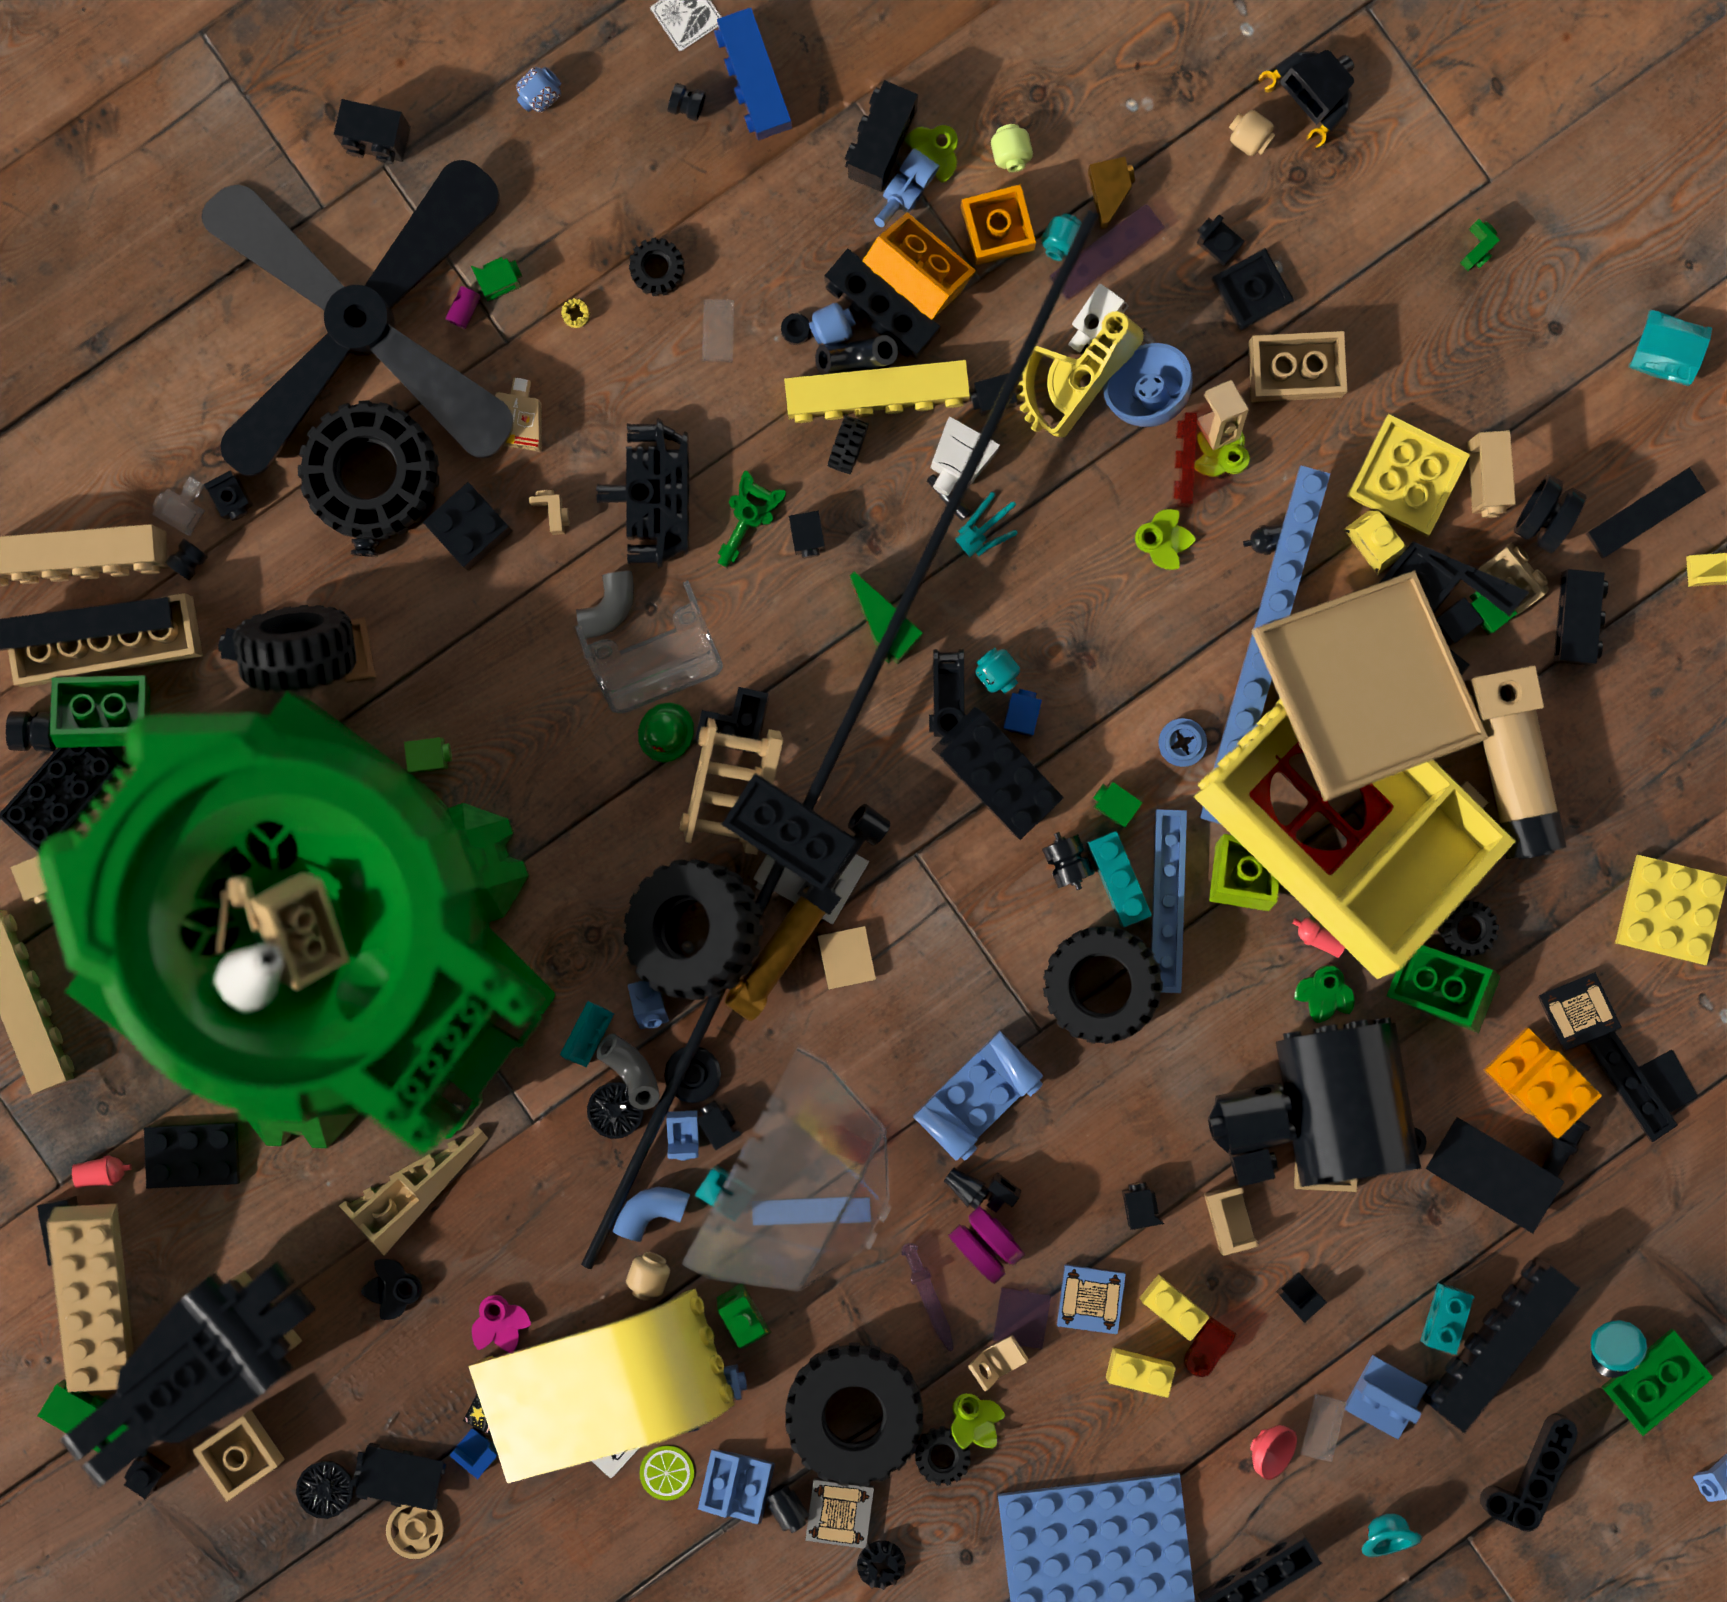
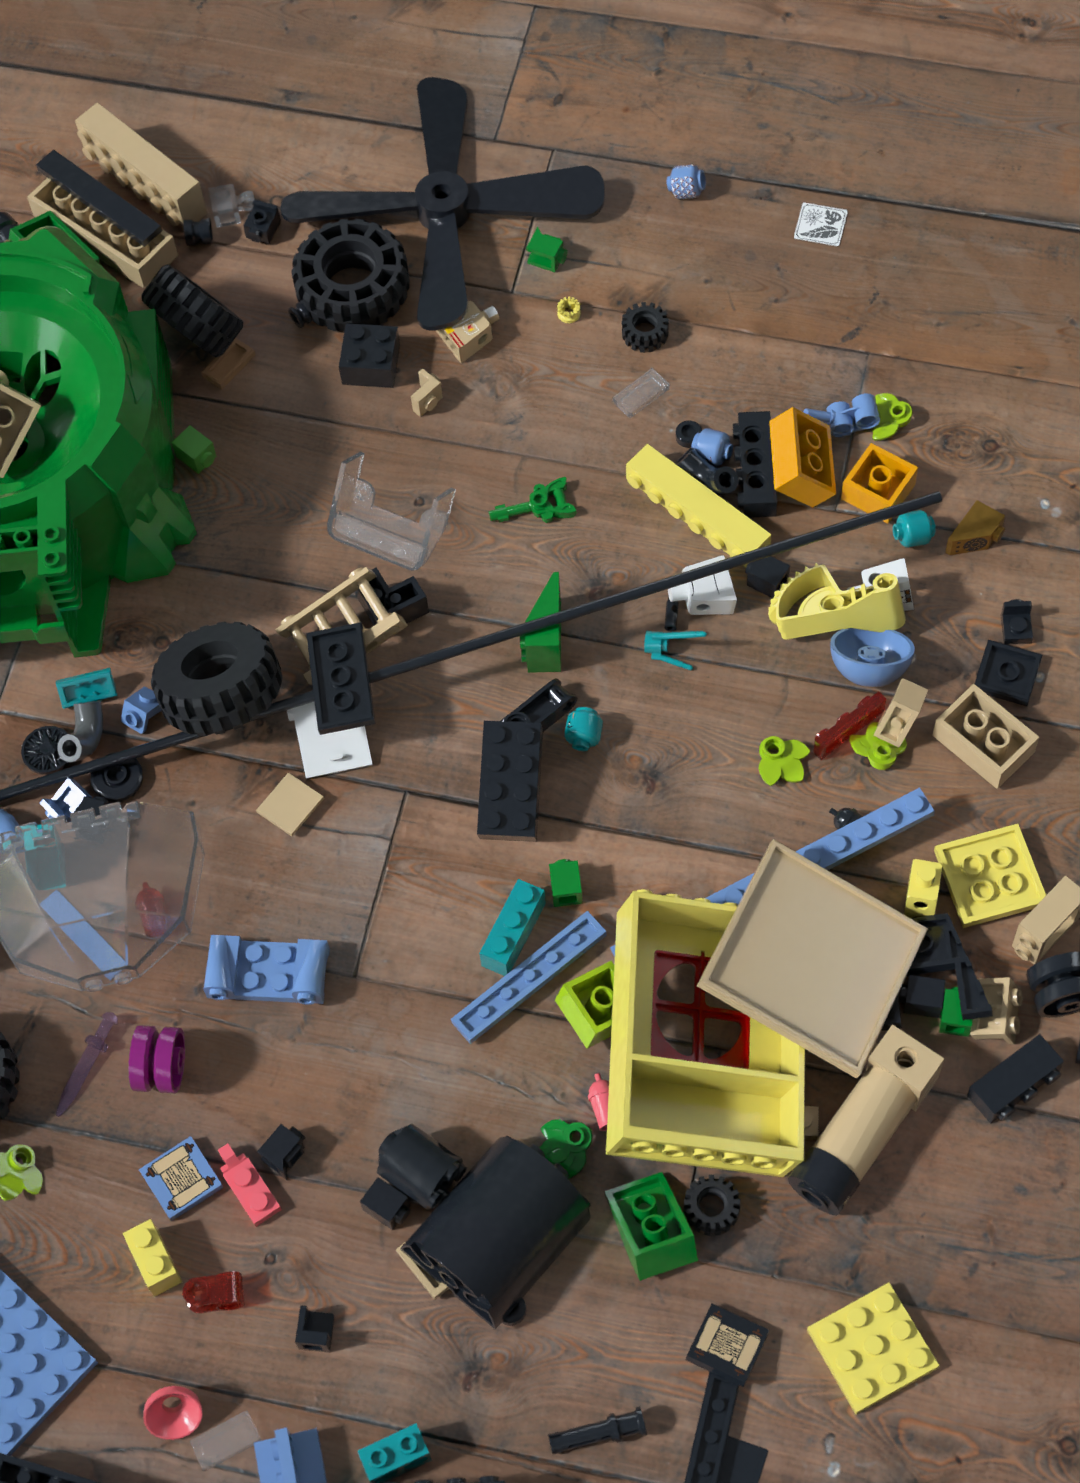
camera: 50 degrees right, 25 degrees down
(372, 131) = (566, 117): black brick -> none
(463, 307) = (508, 249): magenta piece -> none
(613, 607) = (395, 475): dark grey cylinder -> none
(665, 732) = (338, 568): green hat -> none
(673, 493) = (494, 453): black piece -> none
(686, 102) = (766, 262): black wheel -> none
(751, 993) = (306, 743): pearl gold piece -> none
(753, 73) = (822, 279): blue brick -> none
(807, 534) = (560, 543): black brick -> none
(847, 444) = (642, 514): black tyre -> none
(881, 135) = (862, 369): black brick -> none
(967, 1188) = (191, 1019): black cone -> none
(998, 1361) = (76, 1150): tan bracket -> none
(1002, 1192) = (207, 1044): black tile -> none
(1011, 147) = (937, 453): yellowish green head -> none
(1022, 713) = (569, 769): blue brick -> none
(1023, 1316) = (124, 1143): clear purple piece -> none
(1061, 984) = (430, 1007): black tyre -> none
(1068, 862) = (491, 887): black wheel -> none
(1111, 249) = (939, 565): tile -> none
(1142, 1254) = (248, 1186): none -> coral hinge
(1174, 1307) = (224, 1238): light yellow brick -> none
(1196, 747) = (647, 879): medium blue gear -> none
(1230, 1220) = (330, 1223): tan panel -> none
(1495, 1175) = (541, 1392): black tile -> none
(1542, 1082) = (645, 1361): light orange bracket -> none

